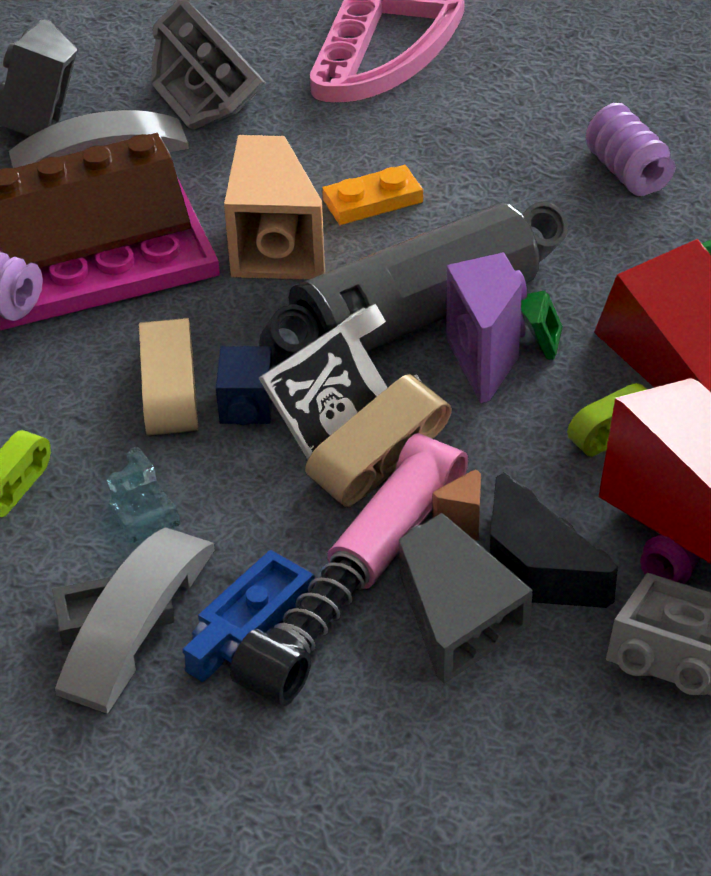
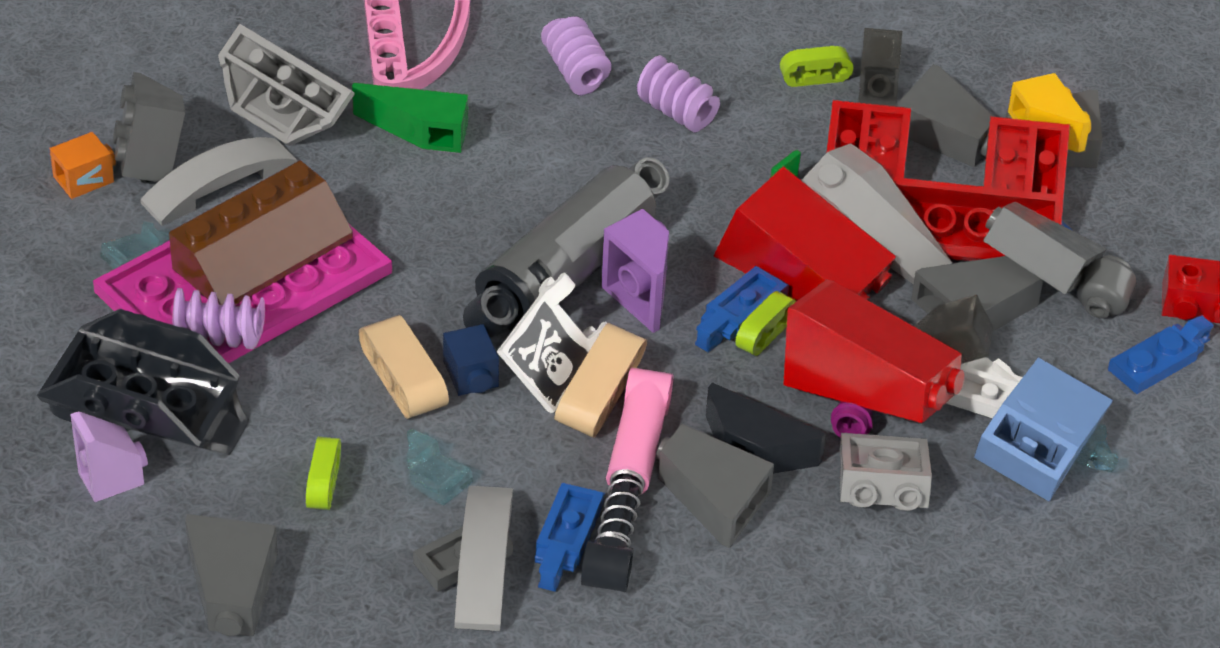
camera: 25 degrees left, 0 degrees up
(272, 213) = (424, 209): light nougat slope -> none
(332, 121) = (419, 116): none -> green slope
(372, 194) = (481, 175): light orange plate -> none
(461, 502) = (686, 410): nougat slope -> none
(536, 91) = (576, 54): none -> lavender piece
(542, 321) = (678, 260): green slope -> none
(577, 390) = (734, 305): none -> blue hinge

